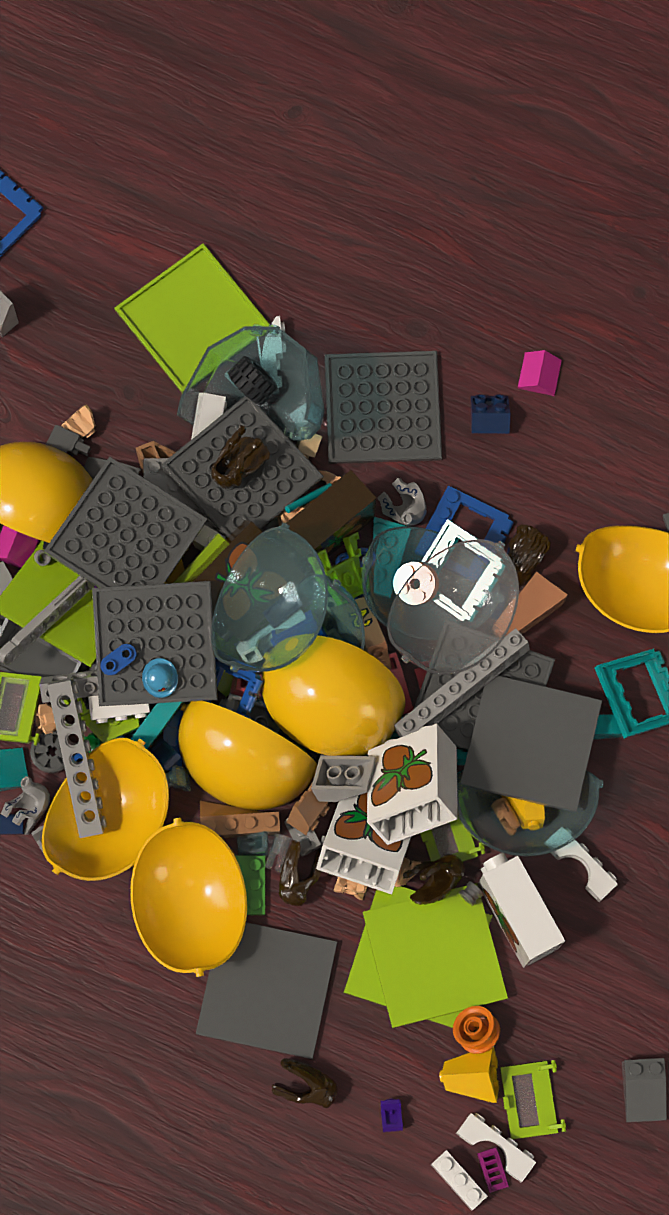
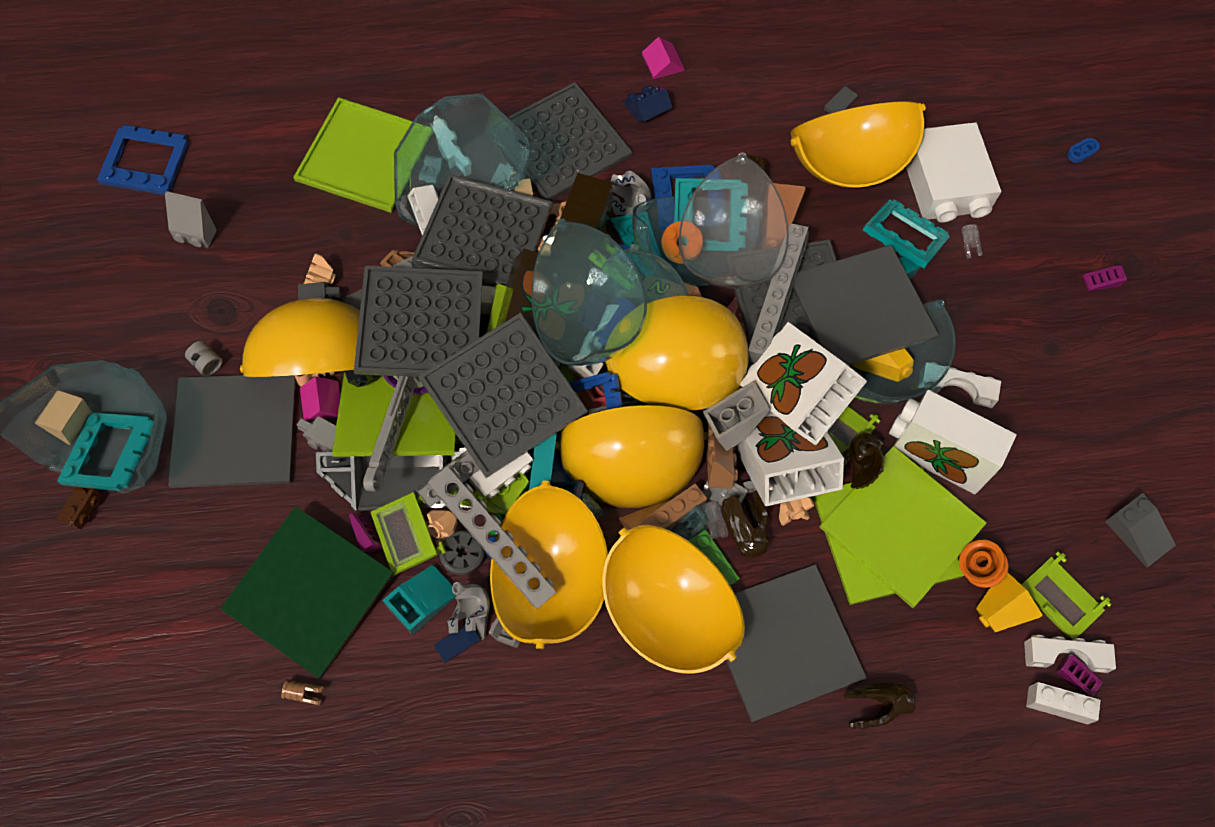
camera: 35 degrees left, 10 degrees down
(46, 559) = (353, 389): light grey hinge -> none
(118, 659) = (480, 423): blue plate -> none
(160, 678) = (527, 419): dark azure hat -> none
(239, 459) = (477, 217): dark brown hair -> none
(252, 380) = (447, 159): black tyre -> none
(306, 499) = (550, 226): teal bar -> none
(391, 1115) = (967, 684): dark purple bracket -> none
(471, 893) = (898, 454): flat silver wheel -> none
(506, 815) = (879, 378): medium nougat hinge -> none

